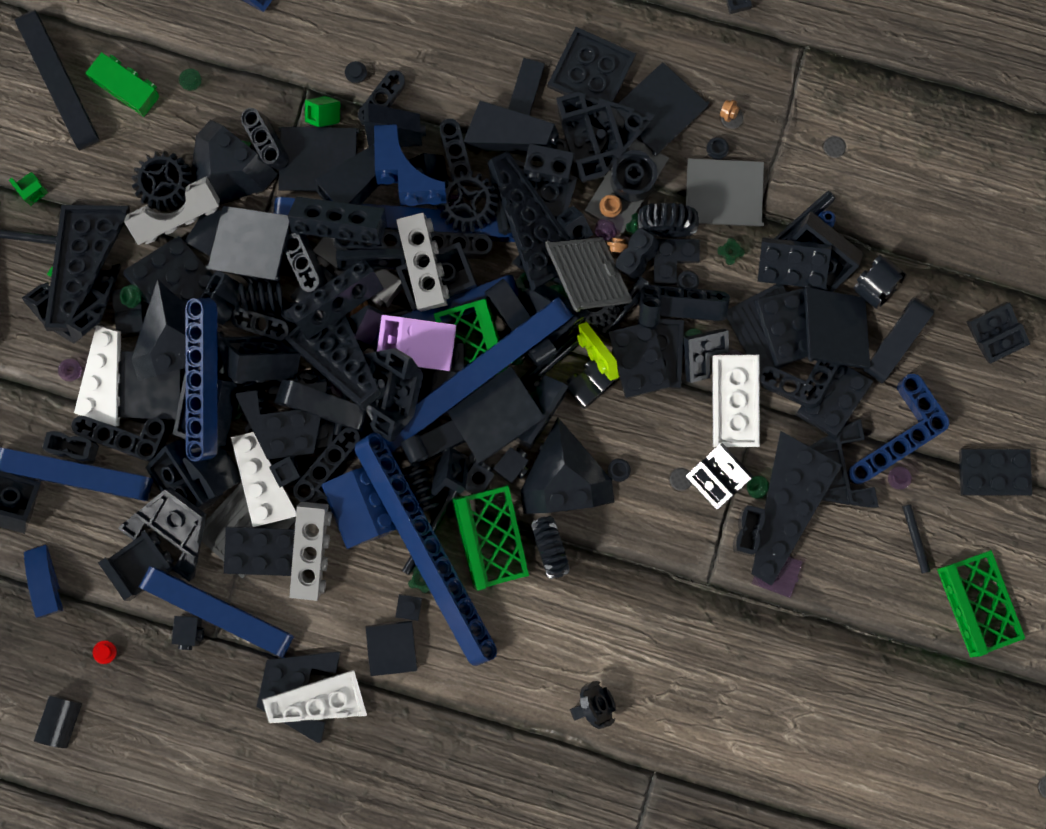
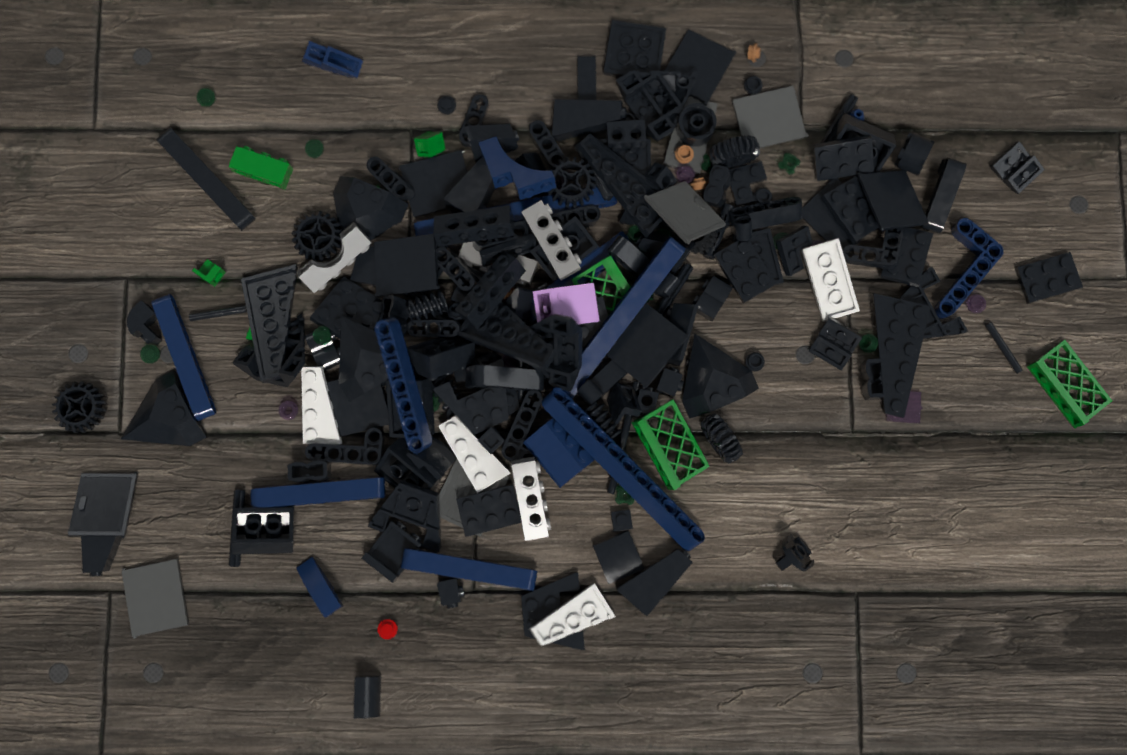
camera: 20 degrees left, 0 degrees up
(421, 690) = (653, 583): none -> black slope
(597, 351) = (711, 271): lime plate -> none

